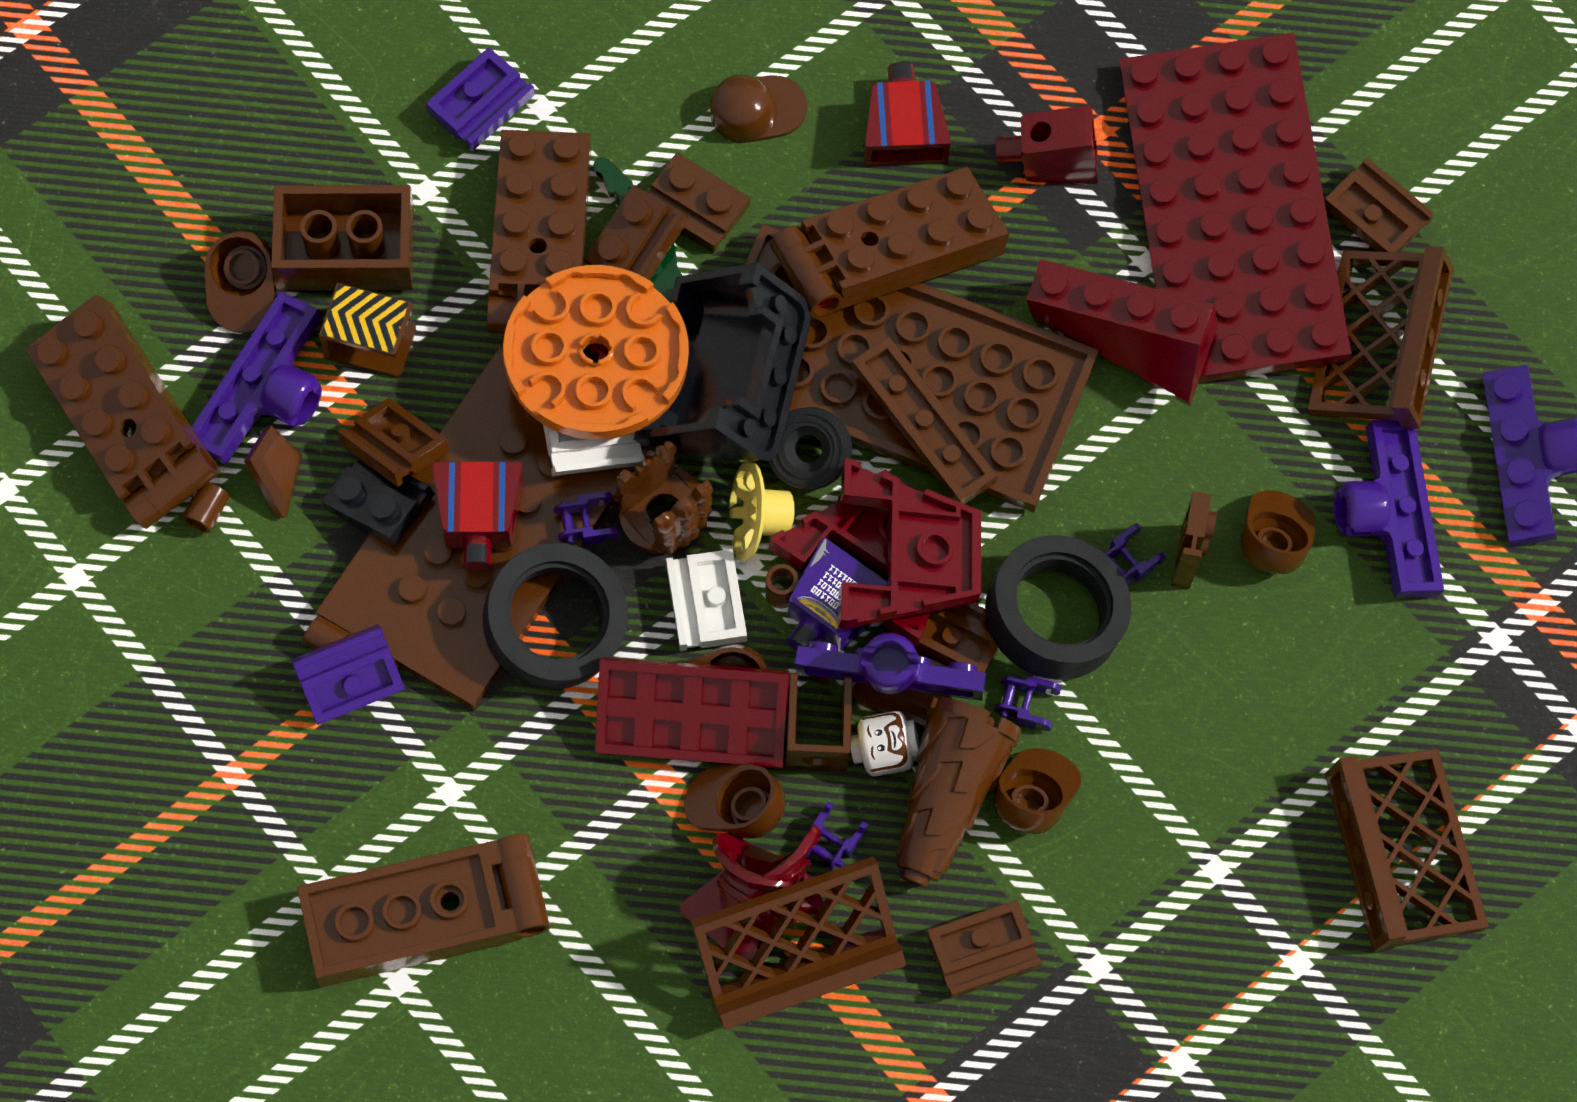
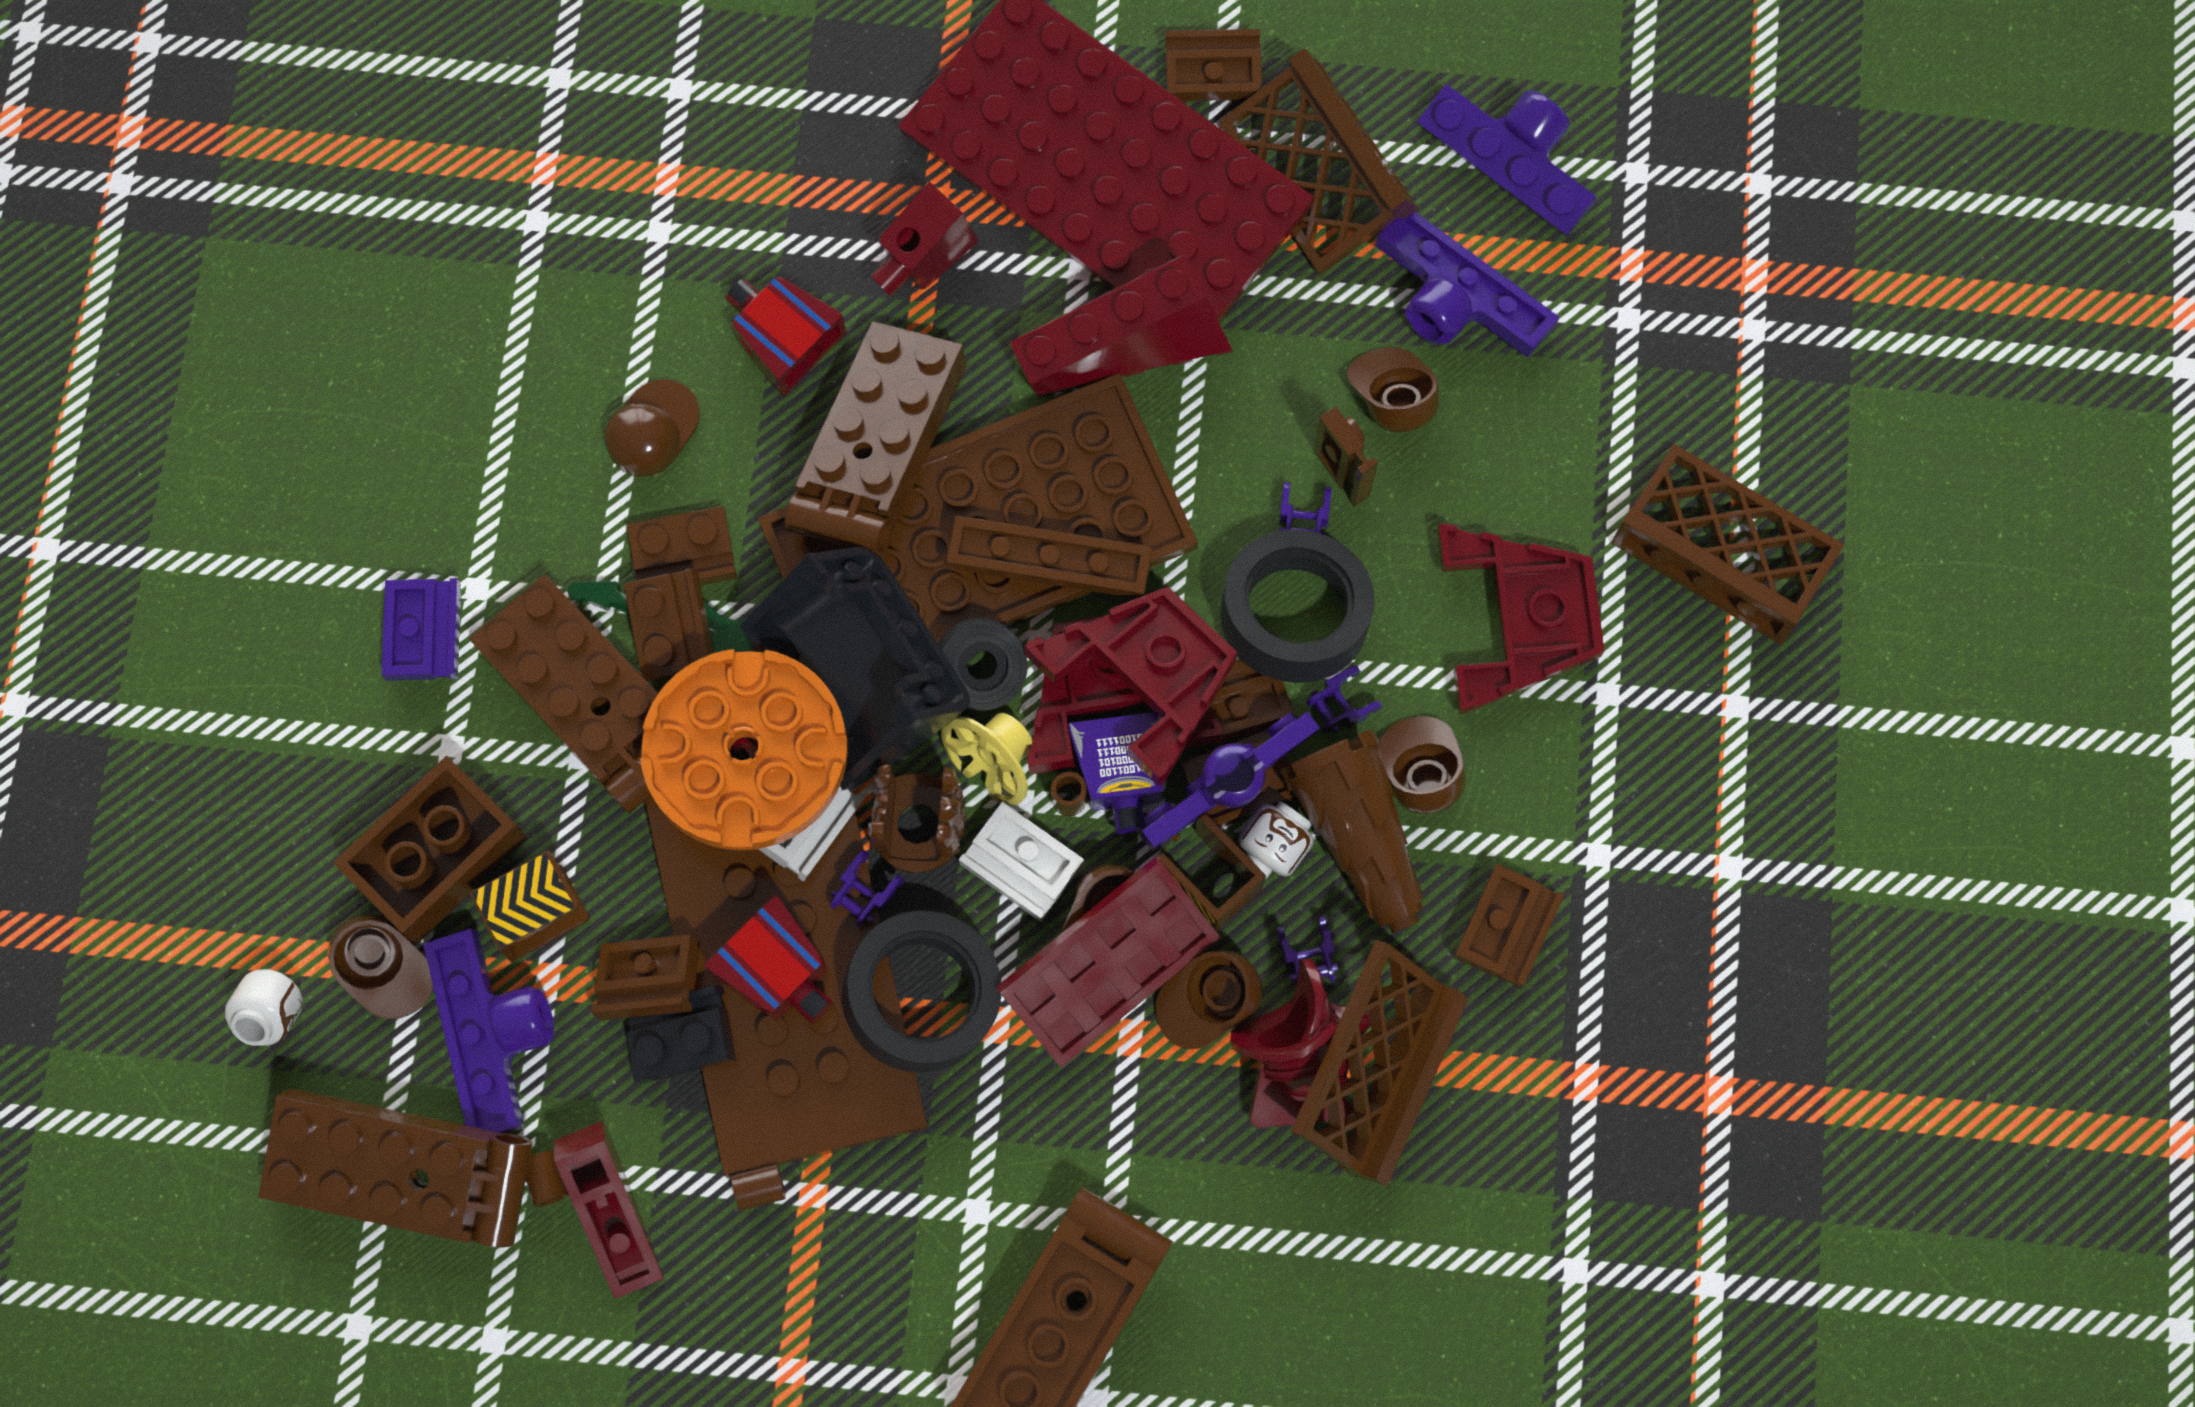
camera: 40 degrees left, 5 degrees up
(145, 238) = (263, 1008): none -> white head
(223, 560) = (607, 1209): none -> dark red slope
(274, 468) = (568, 1092): reddish brown piece -> none
(348, 674) = (805, 1200): dark purple plate -> none
(1225, 773) = (1543, 607): none -> dark red wing

